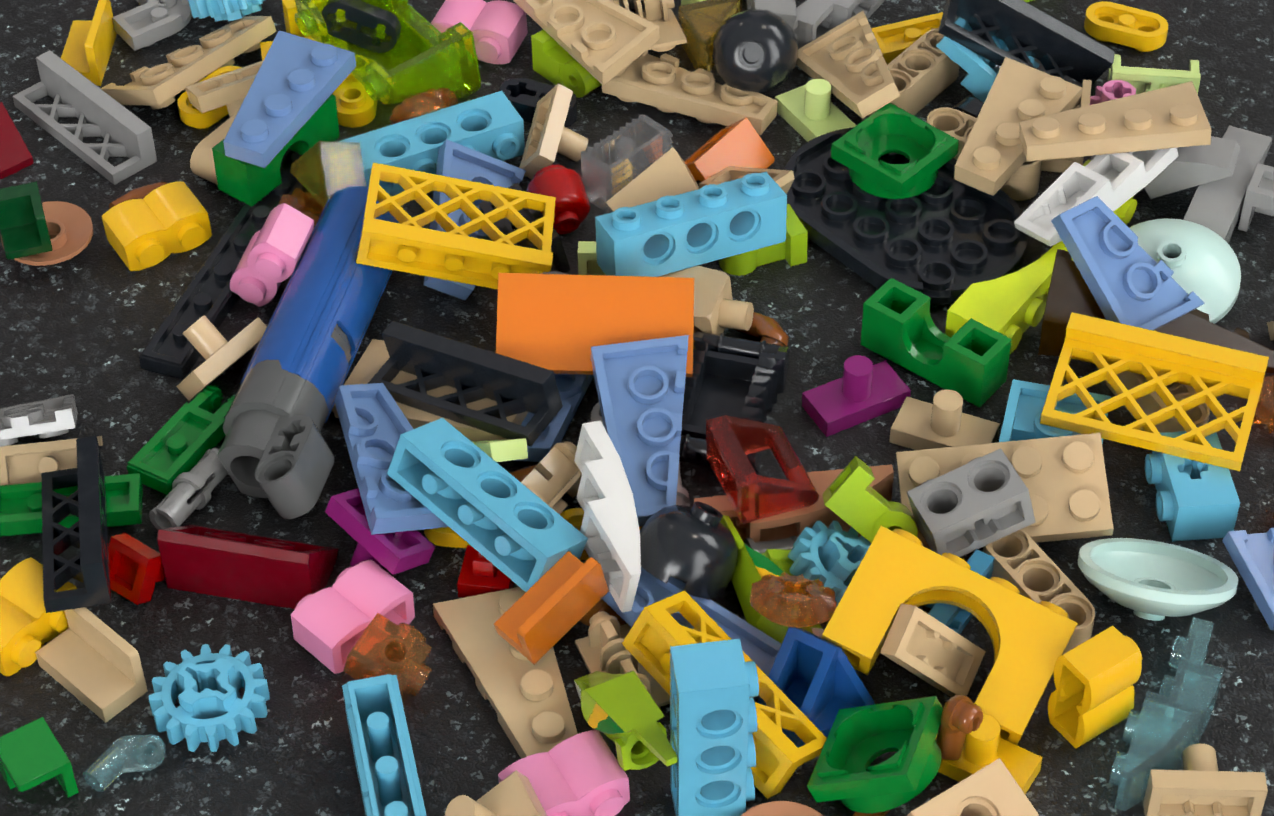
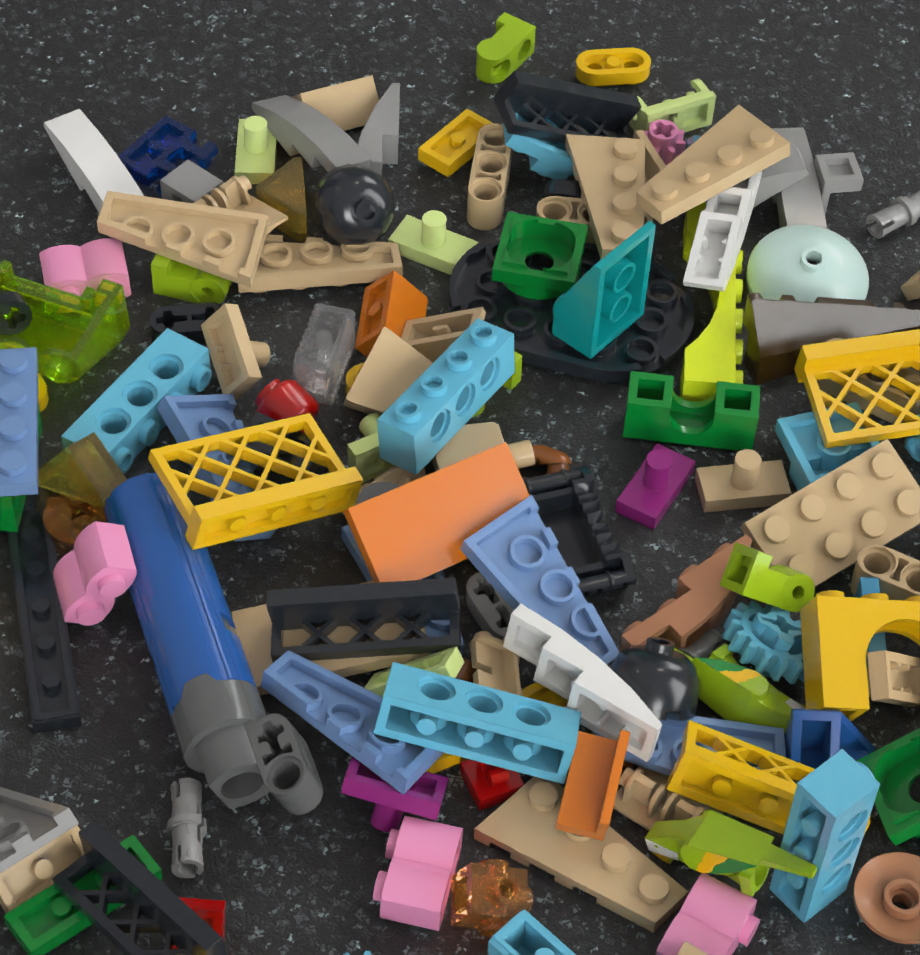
camera: 35 degrees left, 5 degrees up
(182, 440) = (142, 785): green hinge -> none
(216, 351) = (113, 688): tan tile -> none
(243, 565) = (293, 870): dark red slope -> none
(423, 104) = (106, 373): clear orange gear -> none
(750, 494) = (651, 598): clear red tile -> none
(793, 600) = (797, 689): clear orange gear -> none
(852, 65) = (430, 181): tan wing -> none
(918, 197) = (607, 296): none -> teal slope
(972, 505) = (850, 547): light grey brick -> none
(1118, 271) = (809, 297): medium blue wing -> none

